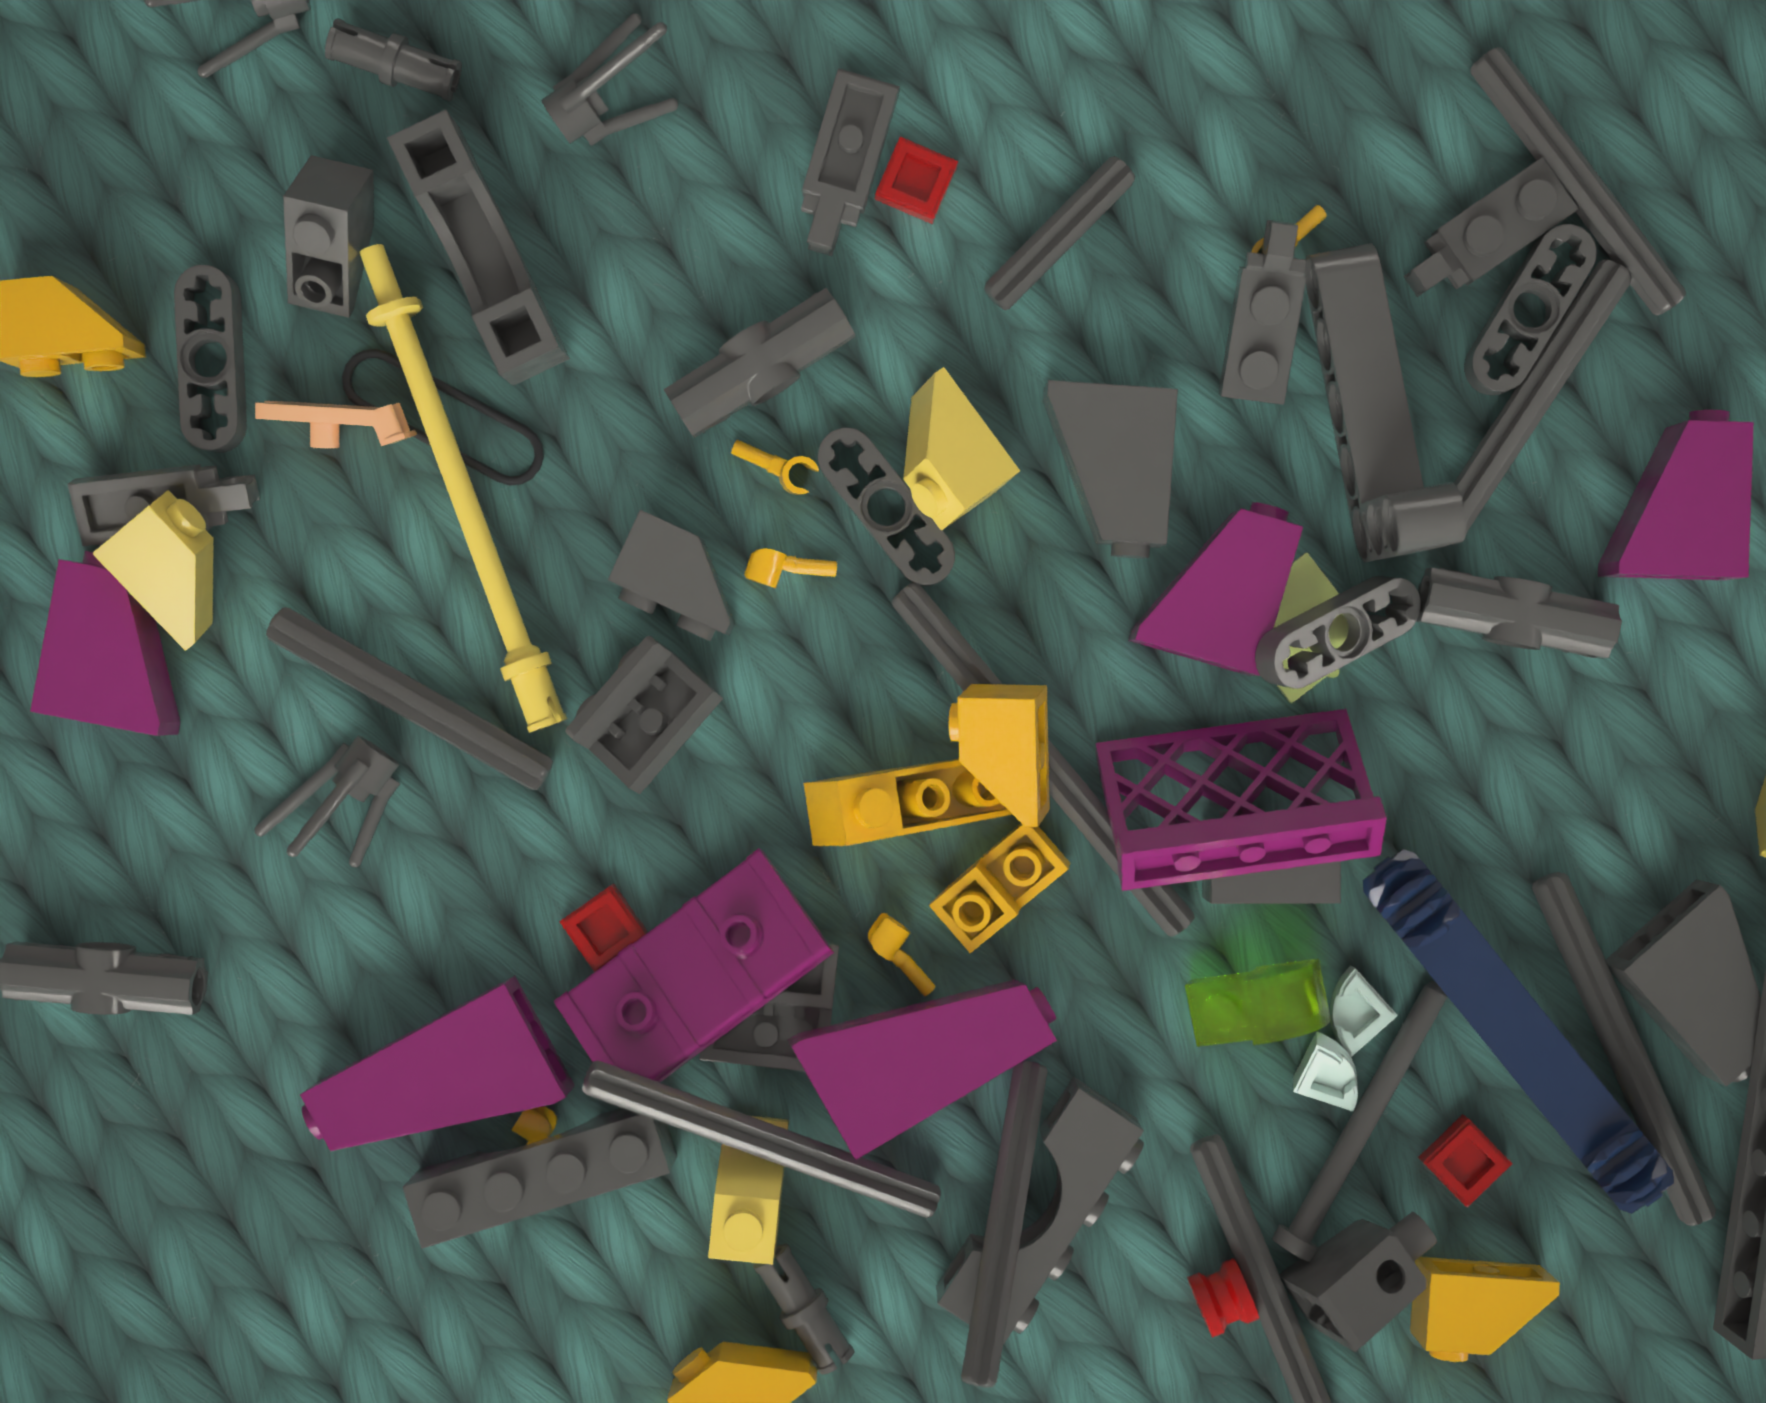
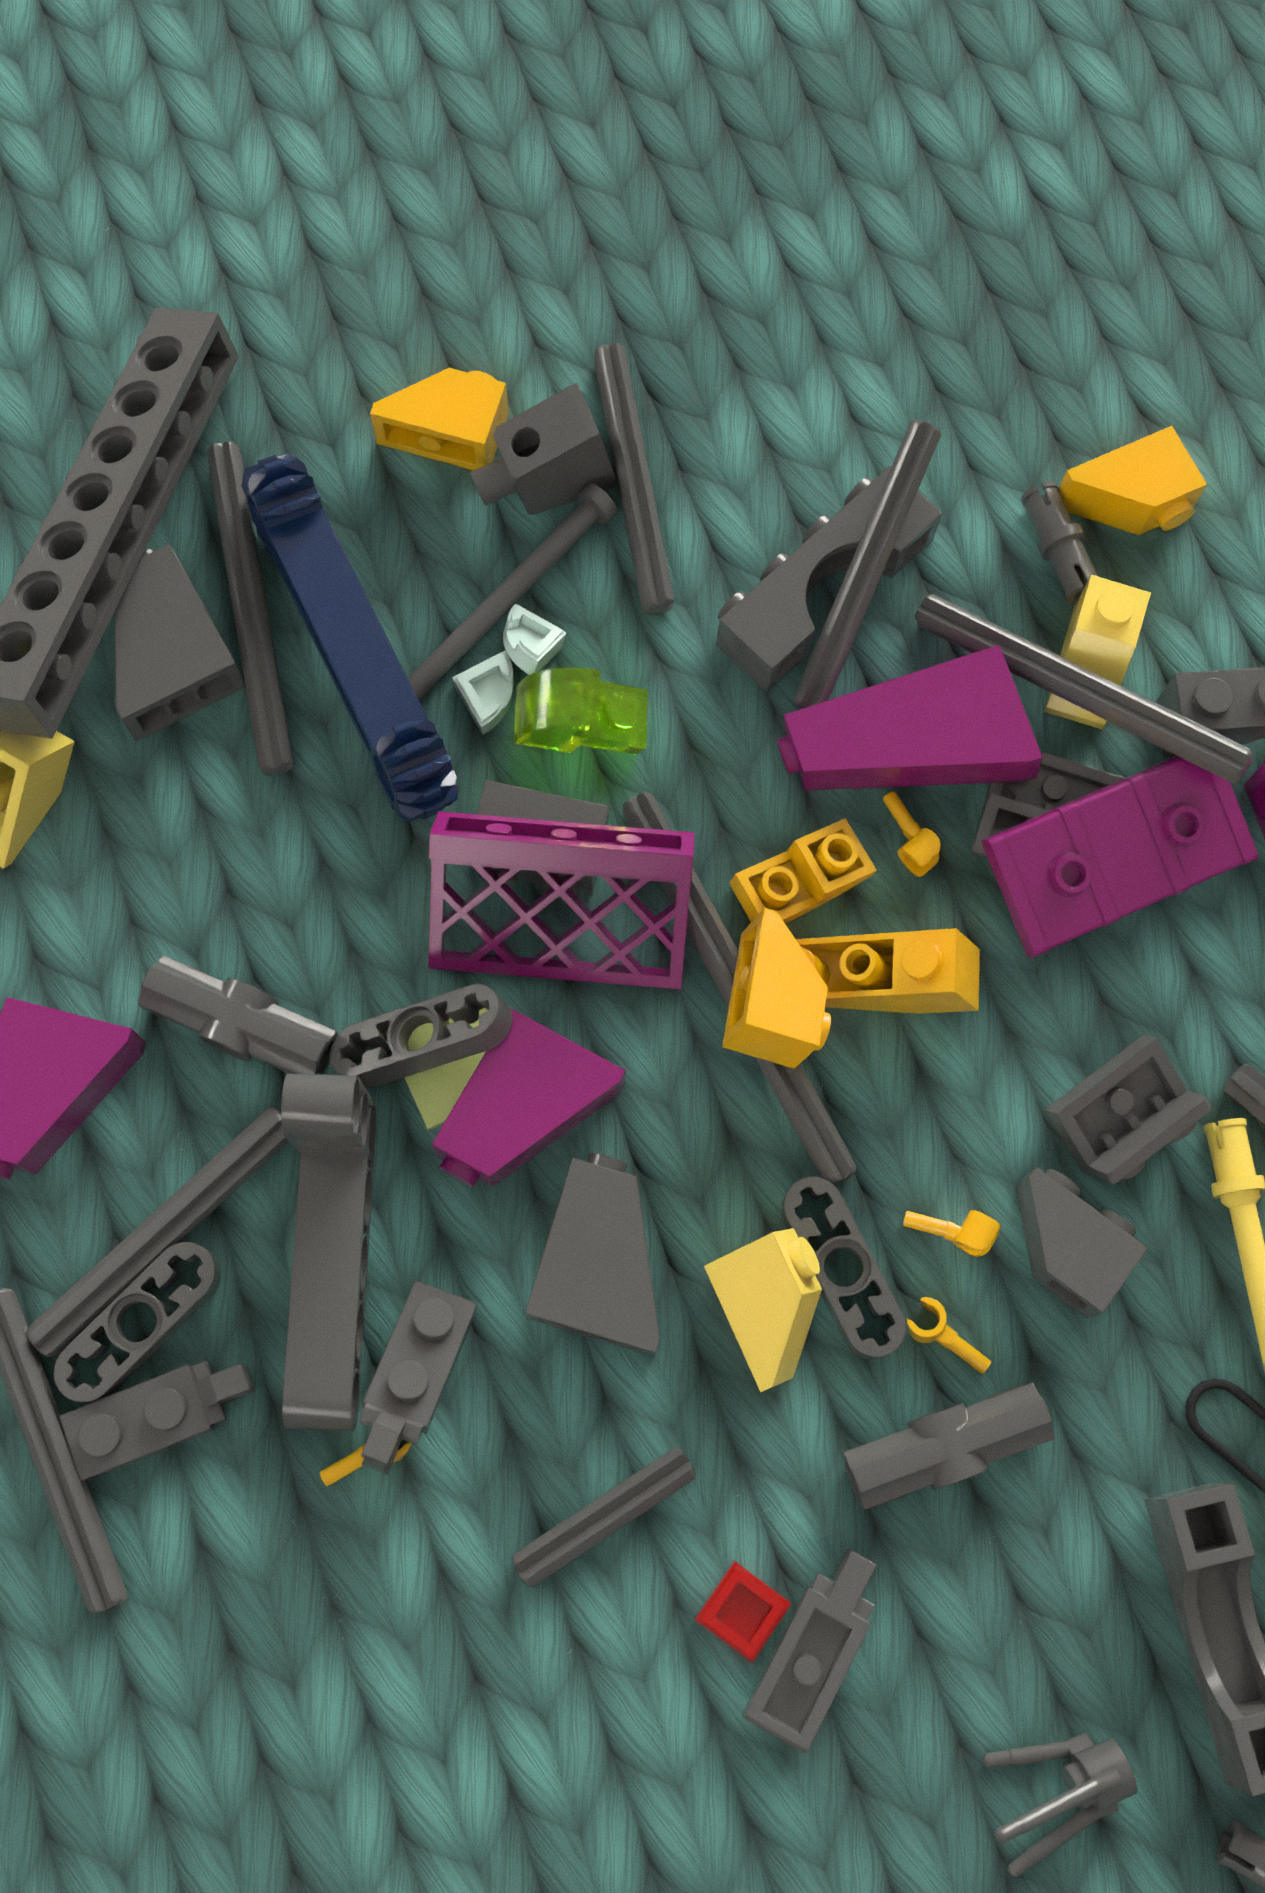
camera: 170 degrees left, 15 degrees down
(603, 927) = (1194, 920): red tile -> none
(1223, 1297) = (675, 469): red wheel -> none
(1465, 1160) = (422, 542): red tile -> none

